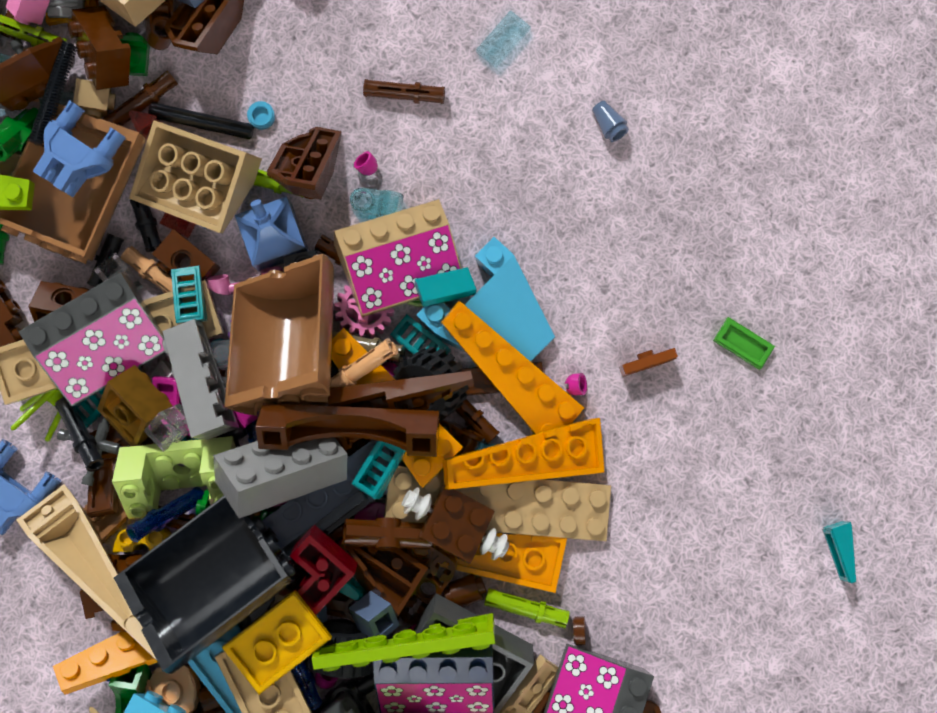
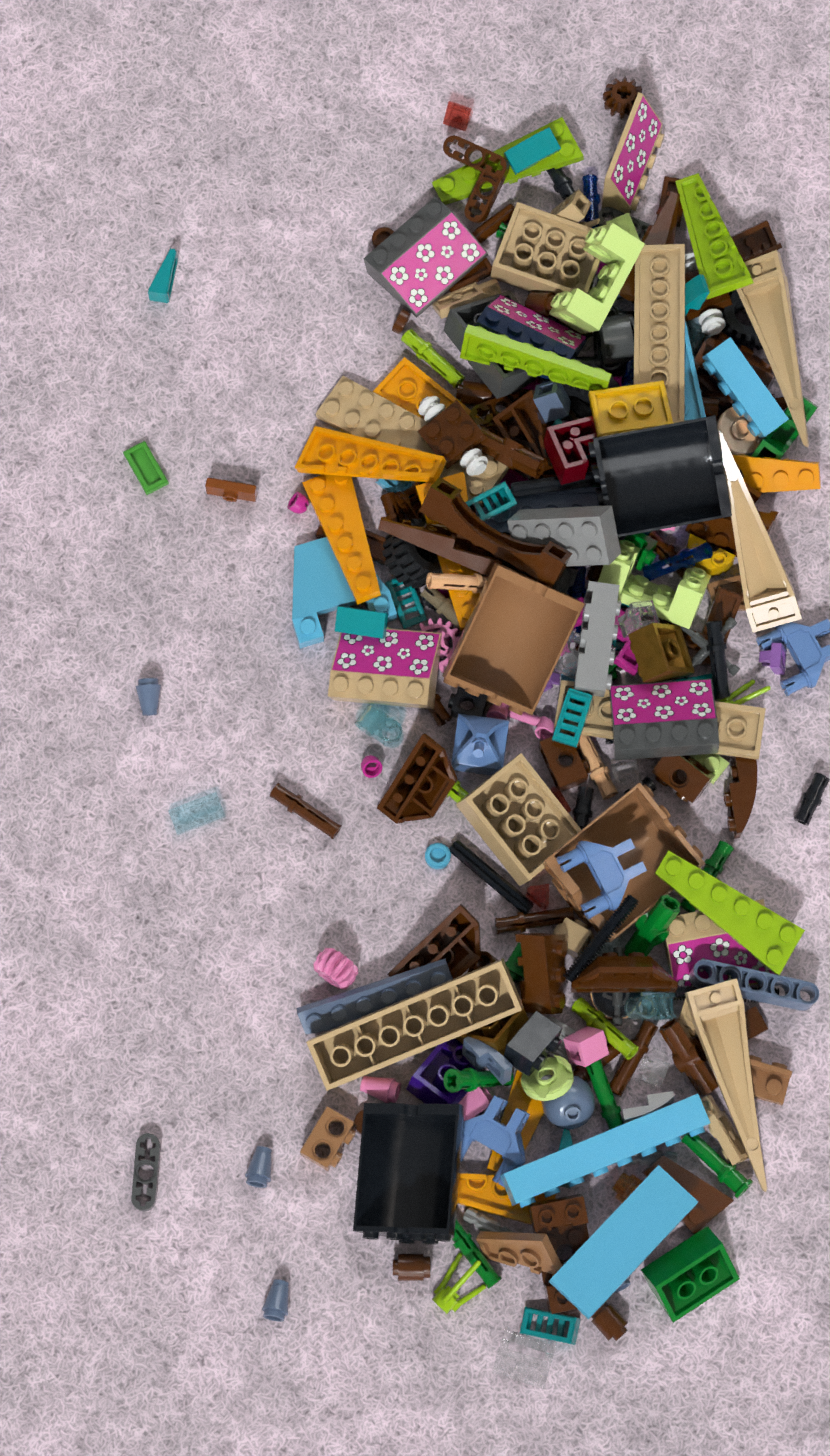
camera: 155 degrees left, 10 degrees down
(31, 470) = (774, 658): none -> medium lavender tile

